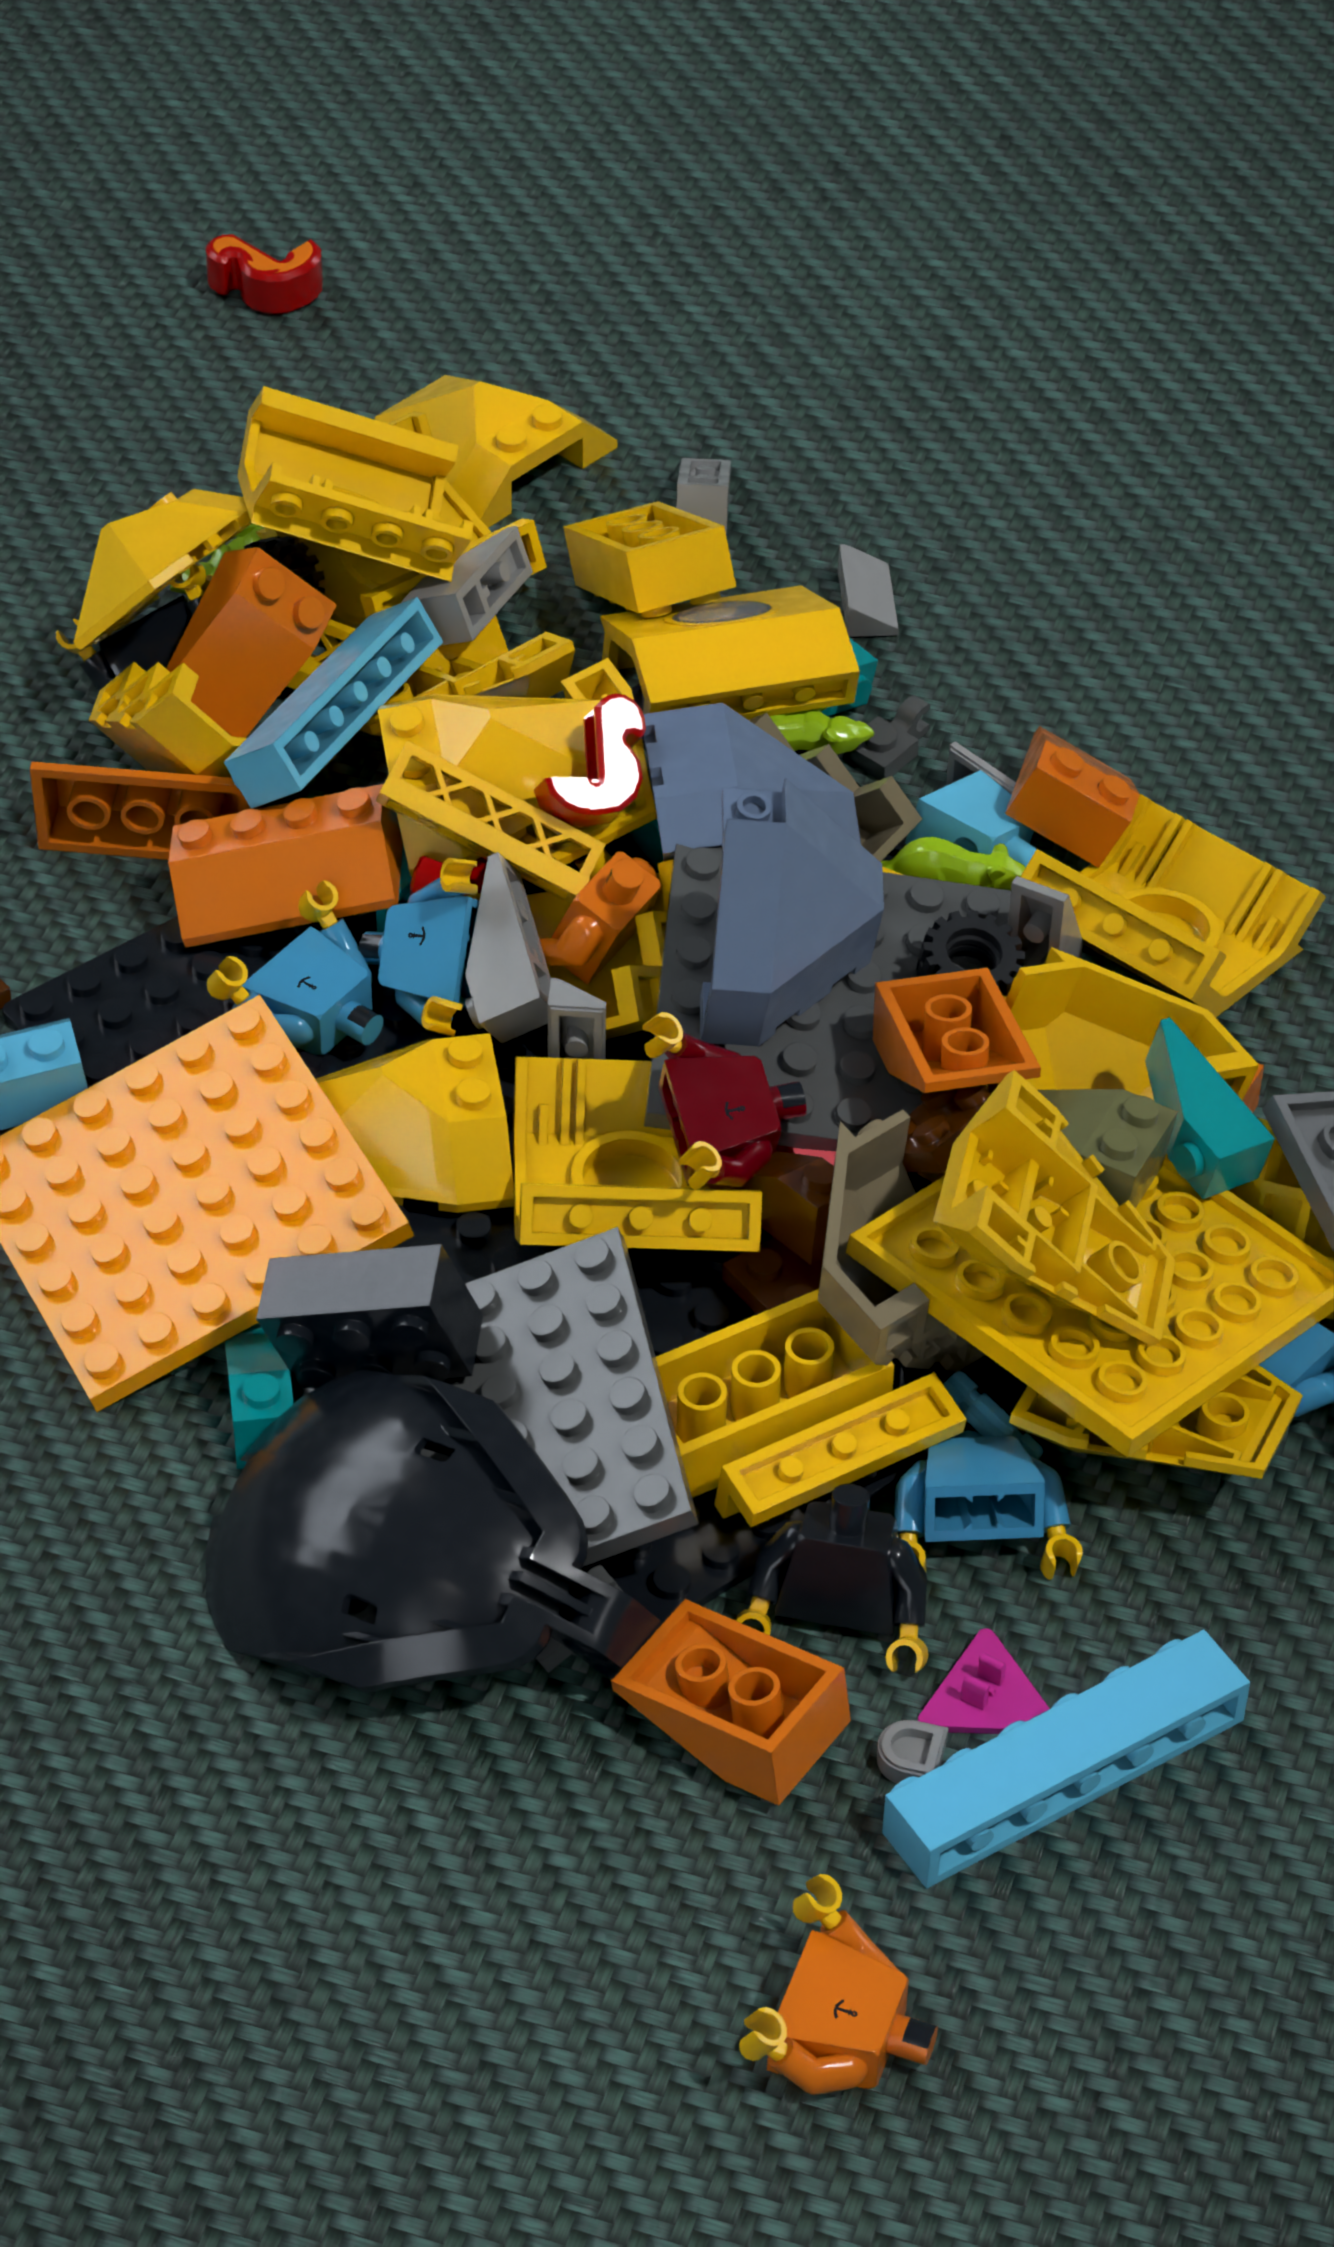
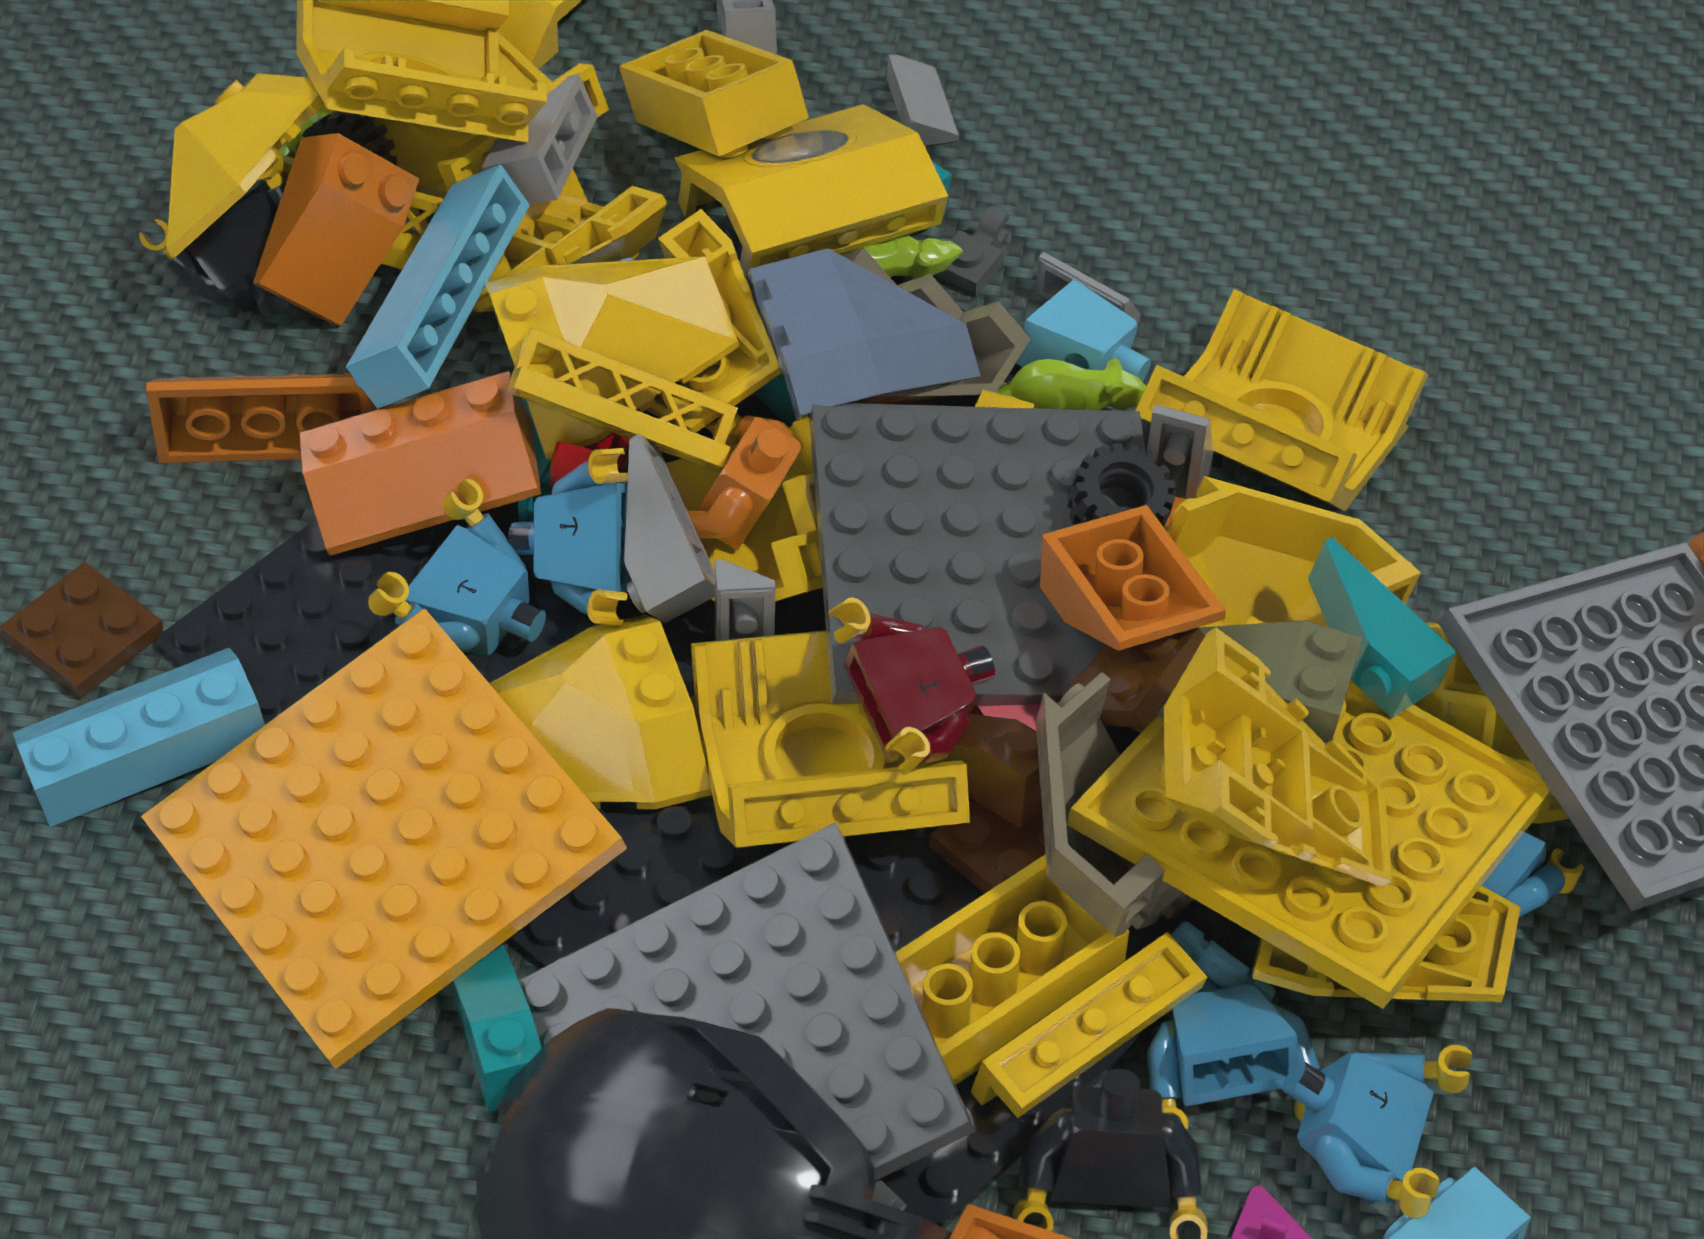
camera: 10 degrees left, 5 degrees up
(159, 724) = (267, 323): yellow panel -> none
(371, 1313) = (607, 950): black brick -> none
(611, 767) = (732, 330): red animal -> none
(791, 913) = (953, 475): sand blue panel -> none
(1072, 798) = (1169, 298): orange slope -> none
(1109, 1571) = (1369, 1120): none -> dark azure torso

